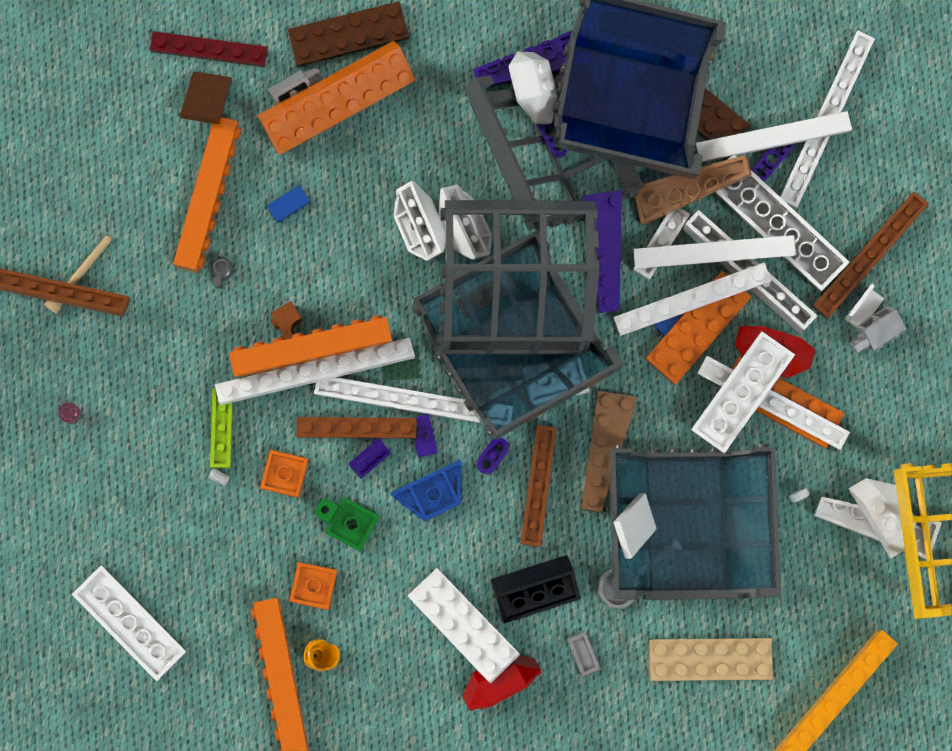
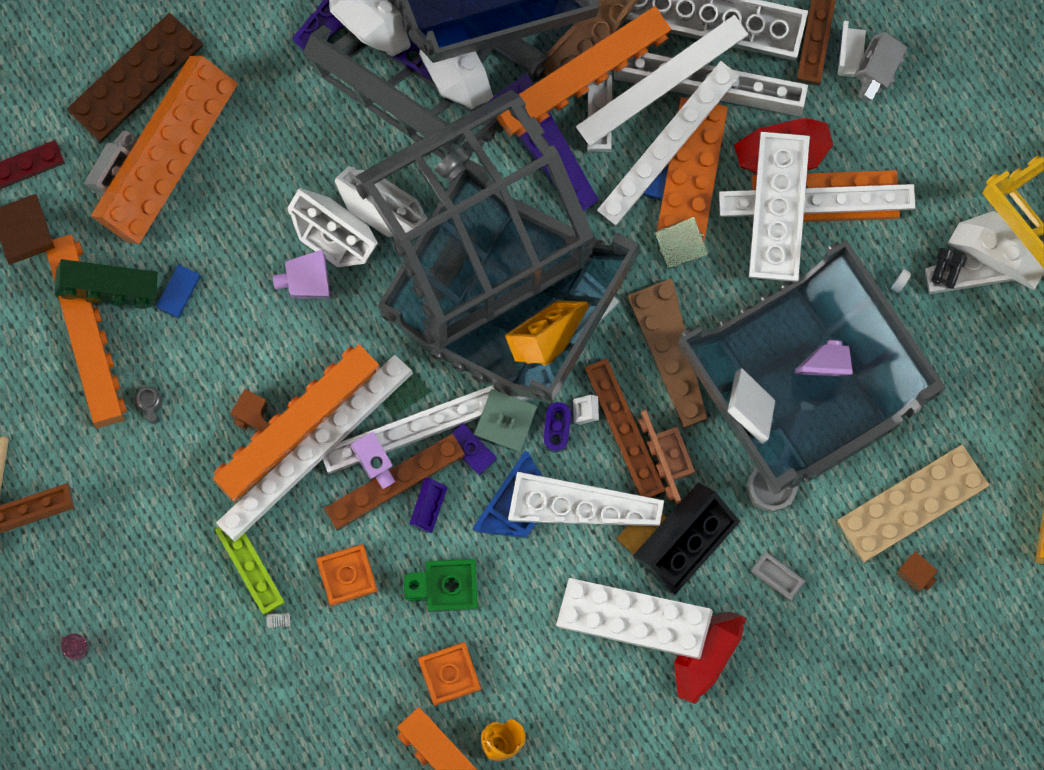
camera: 25 degrees left, 5 degrees down
(239, 170) = (106, 284): none -> dark green brick
(349, 395) = (368, 448): none -> lavender torso
(381, 246) = (305, 277): none -> lavender torso
(459, 429) = (505, 420): none -> sand green piece
(464, 513) = (559, 501): none -> white wing
(508, 563) = (635, 536): none -> pearl gold tile
(516, 234) = (451, 166): none -> flat silver piece
(519, 455) = (585, 409): none -> white plate
(522, 387) = (546, 333): none -> light orange slope
(560, 523) = (671, 455): none -> nougat bracket
(573, 170) = (460, 79): none -> white wedge
(658, 375) = (681, 242): none -> clear green piece
(667, 213) = (589, 68): none -> orange brick
(683, 712) = (918, 573): none -> dark orange brick
(709, 523) = (828, 361): none -> lavender slope
(845, 505) = (951, 259): none -> black piece

